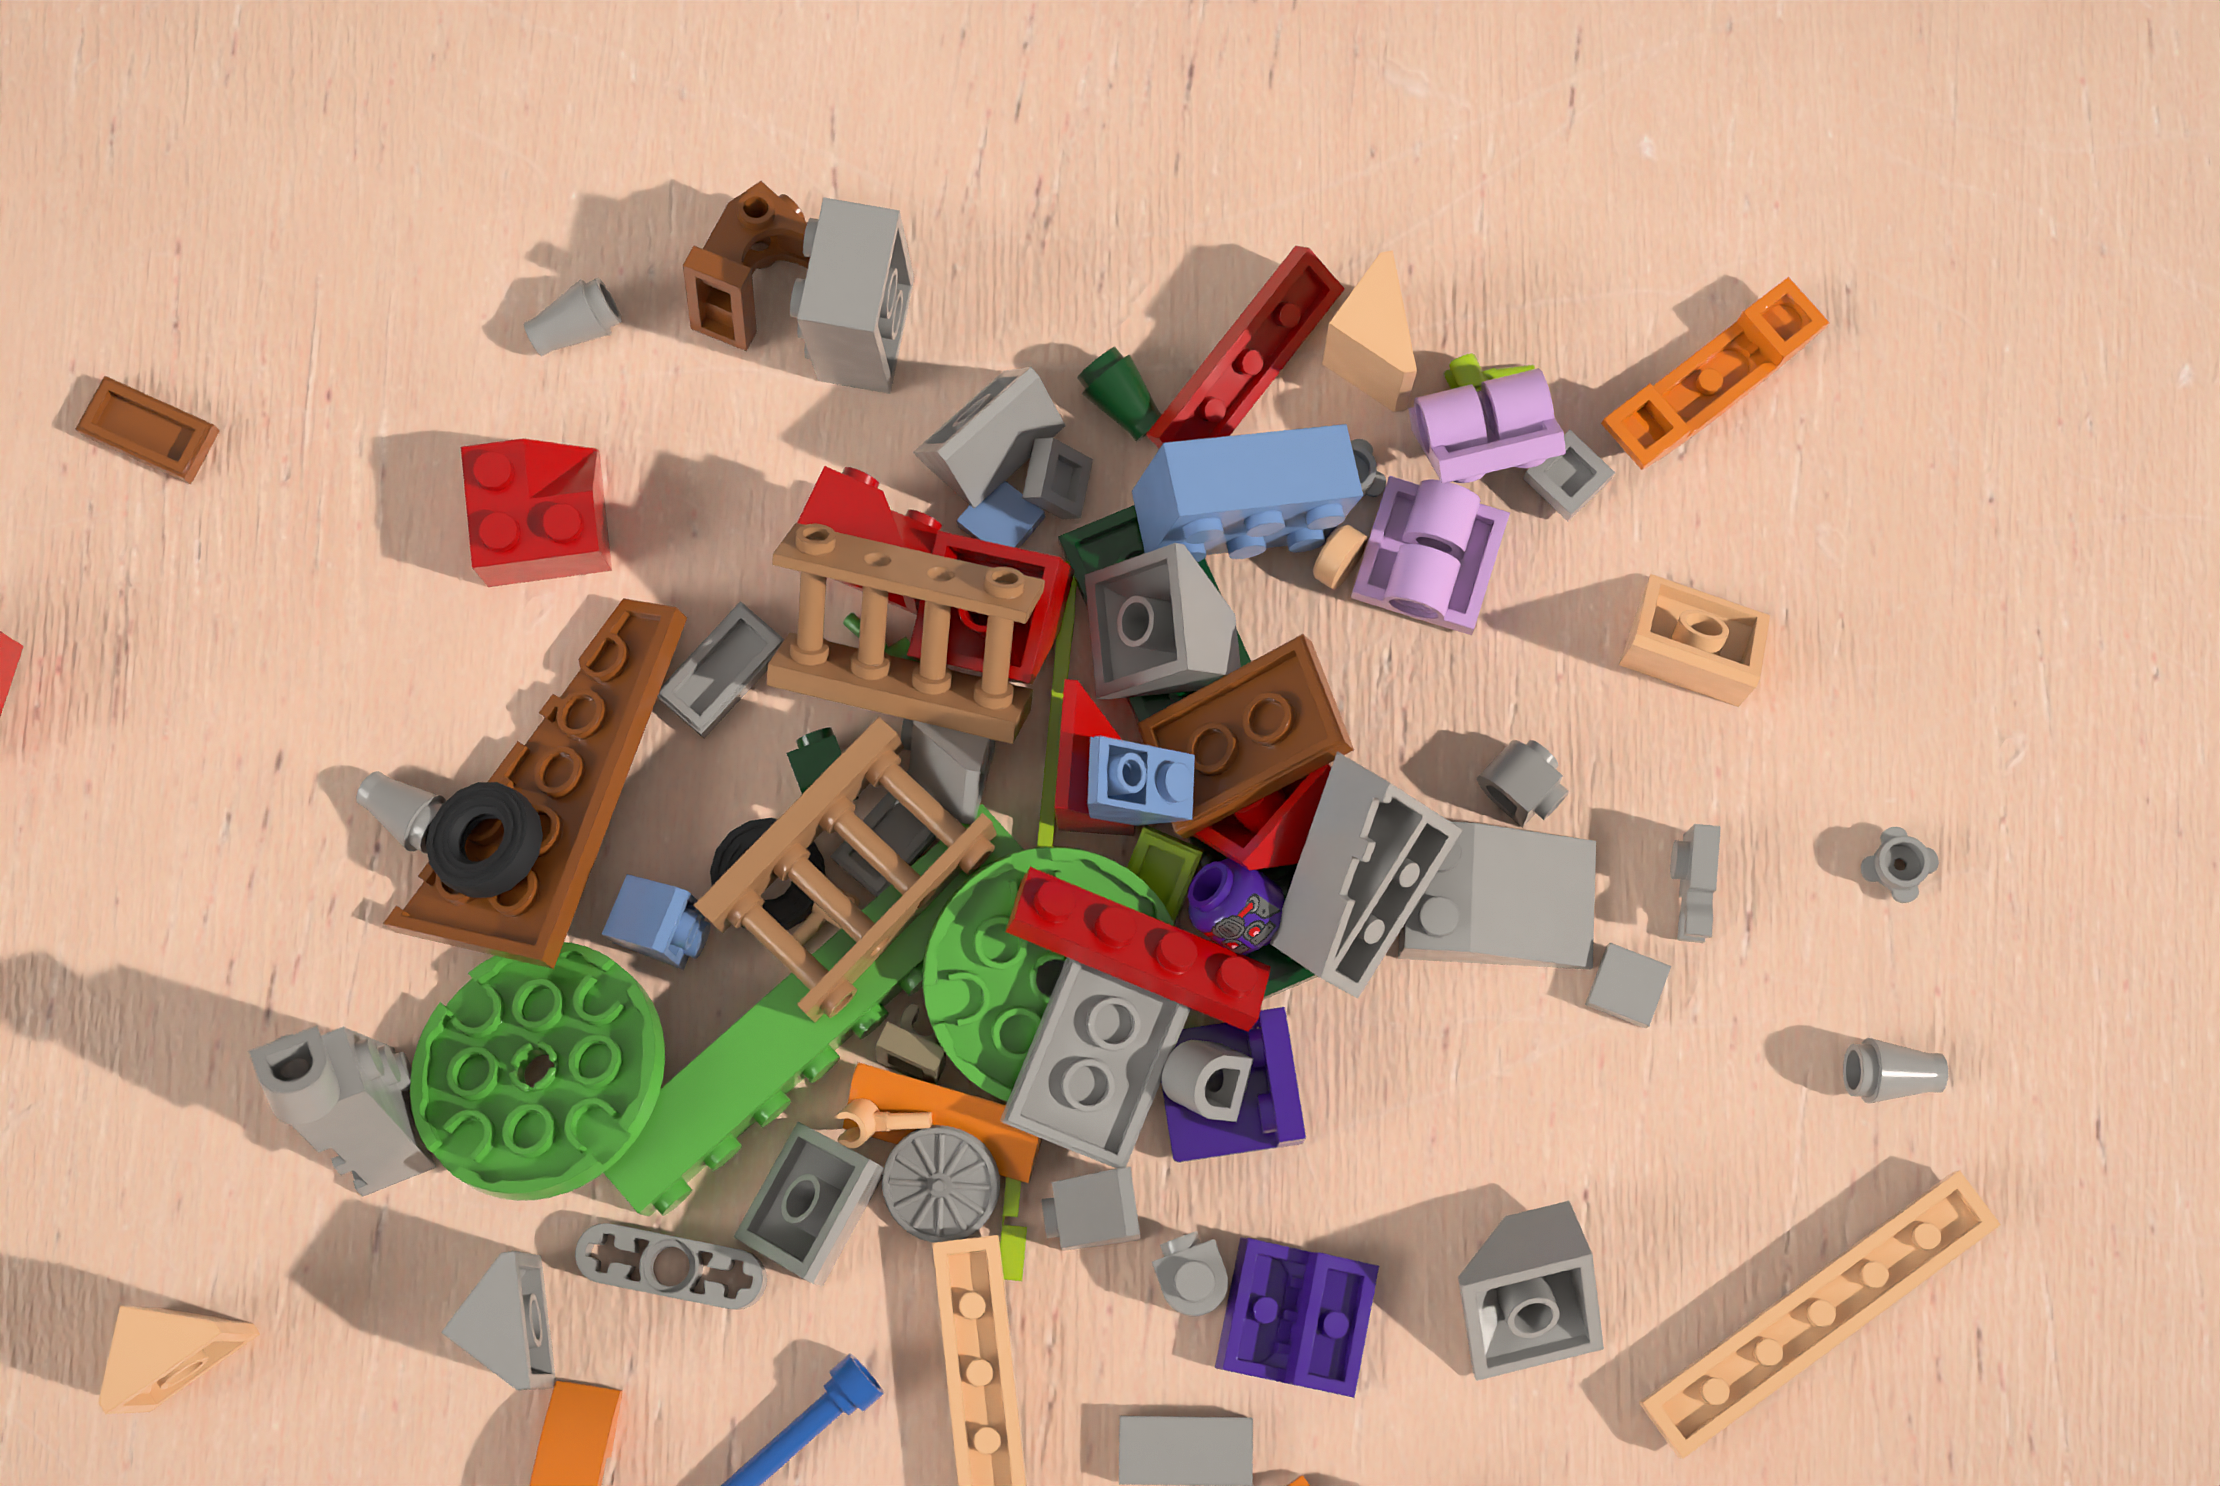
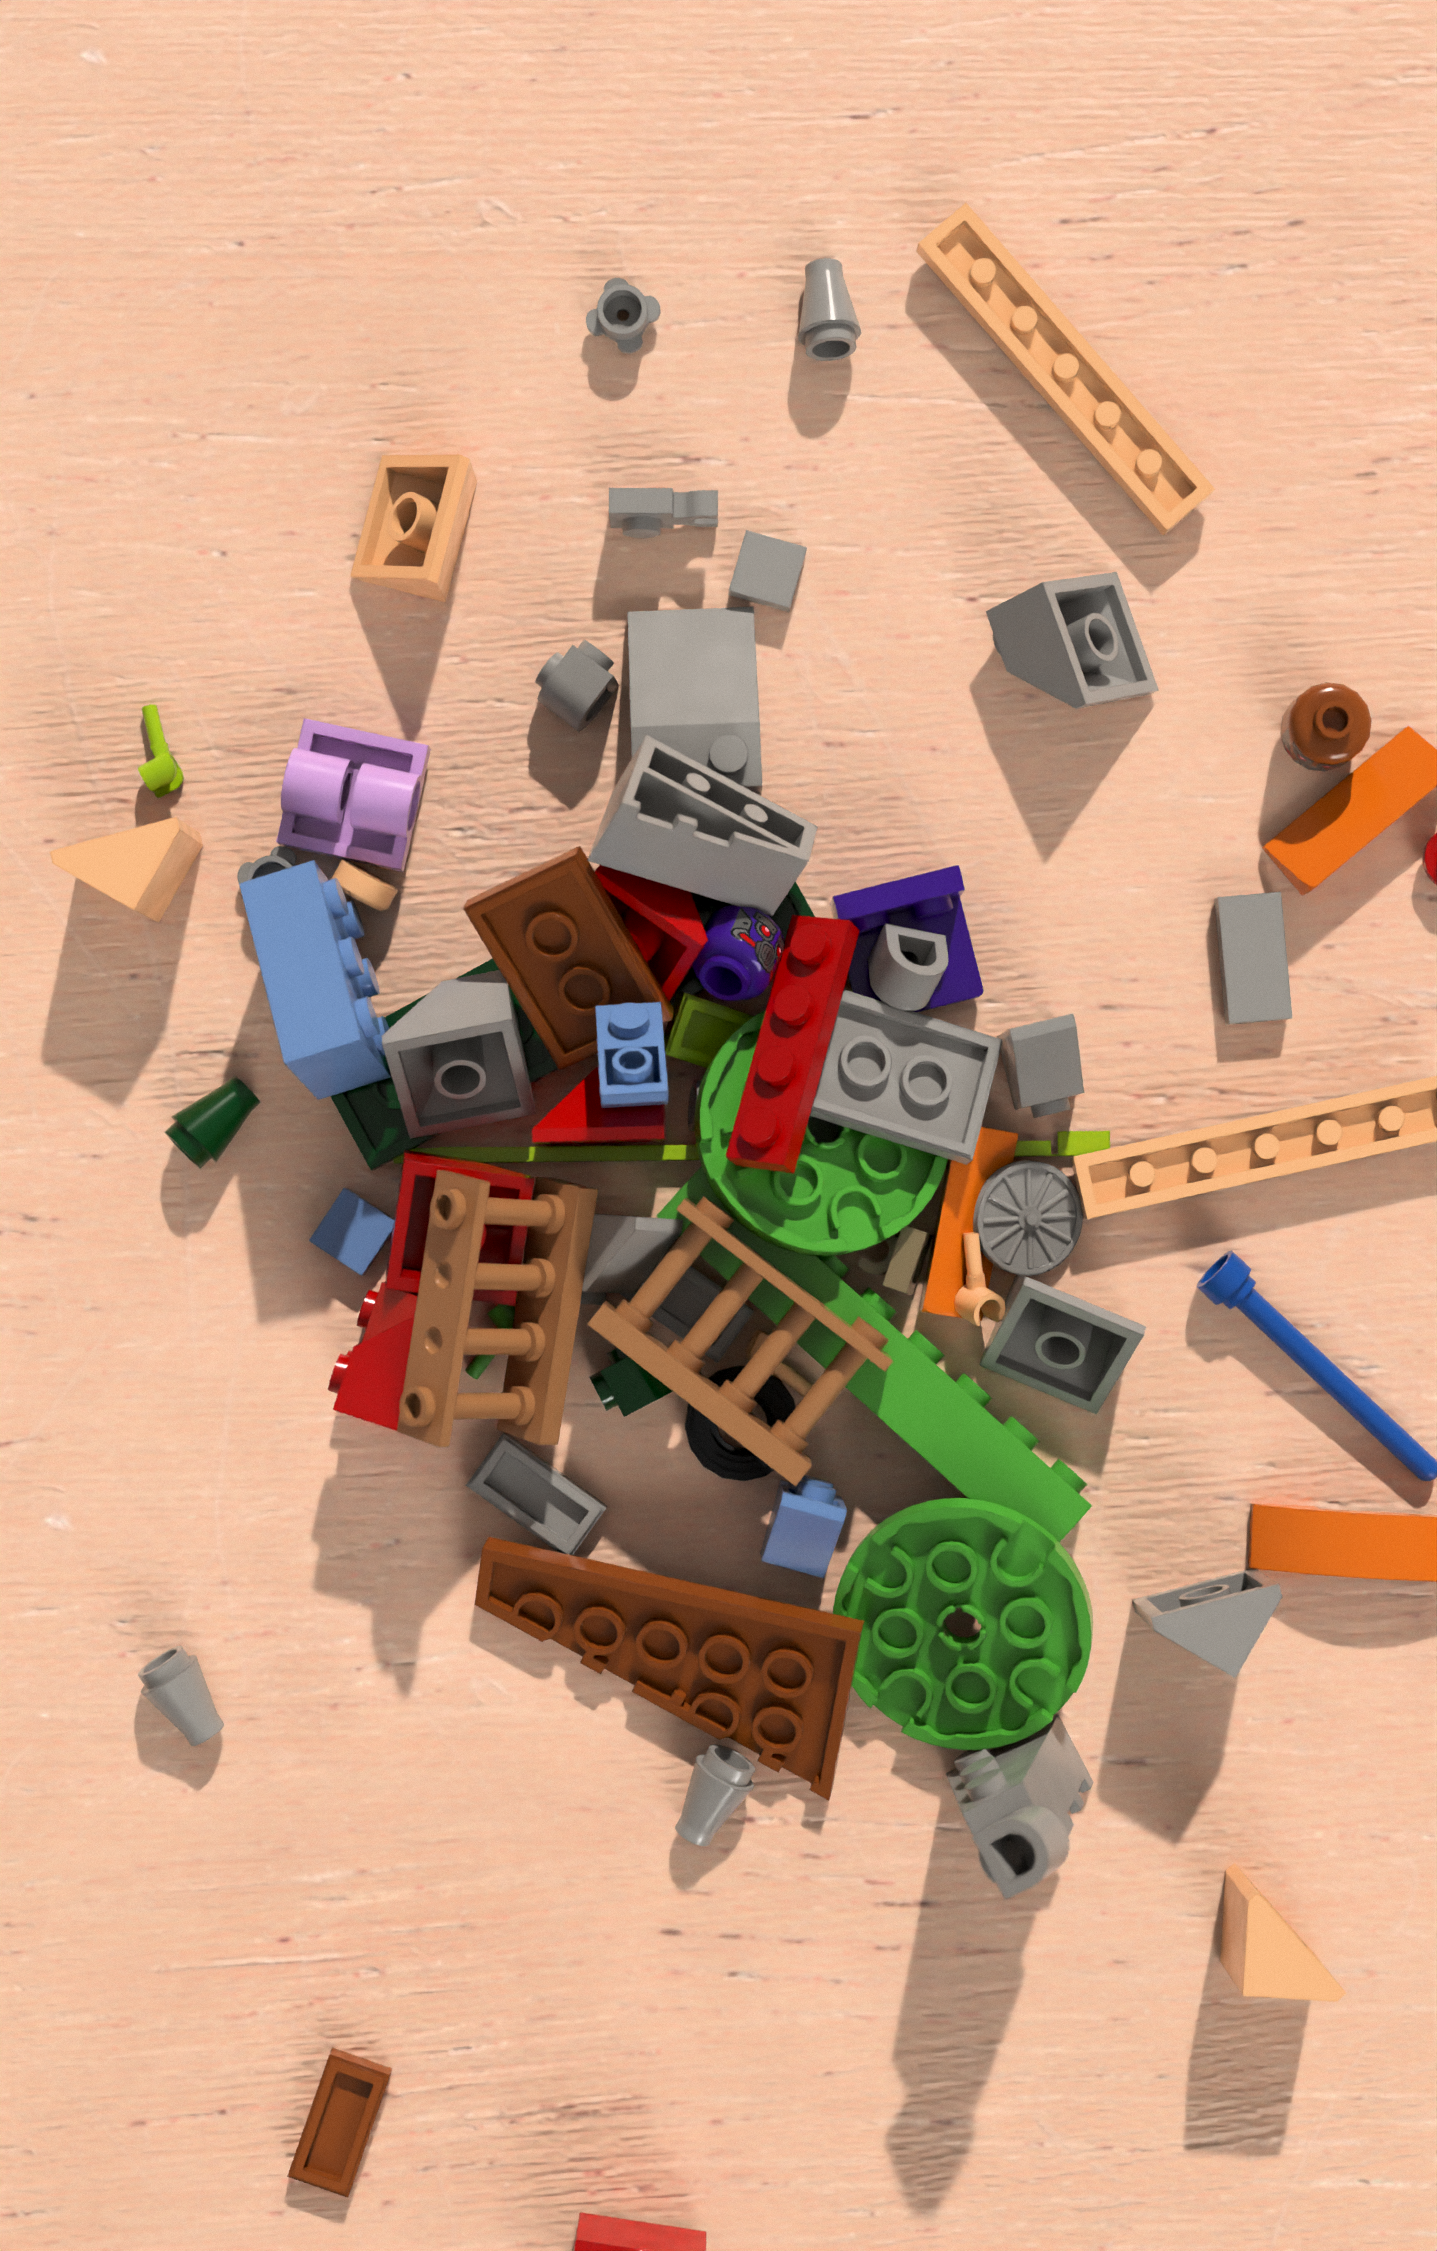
camera: 100 degrees left, 10 degrees up
(512, 858) = (734, 1744): black tyre -> none
(534, 511) = (392, 1706): red slope -> none
(627, 1239) = (1113, 1516): light grey beam -> none
(721, 273) = (135, 1549): dark orange tile -> none
(854, 294) = (140, 1402): light grey brick -> none
(992, 435) = (268, 1250): light grey slope -> none
(1057, 478) = (309, 1177): light grey plate -> none
(1191, 1275) = (1091, 966): light grey plate -> none
(1251, 351) = (164, 996): red plate -> none
(1297, 1317) = (1117, 864): dark purple slope -> none
(1488, 429) = (221, 744): lavender plate -> none
(1571, 478) = (257, 662): light grey plate -> none
(1716, 375) = (138, 521): orange slope -> none

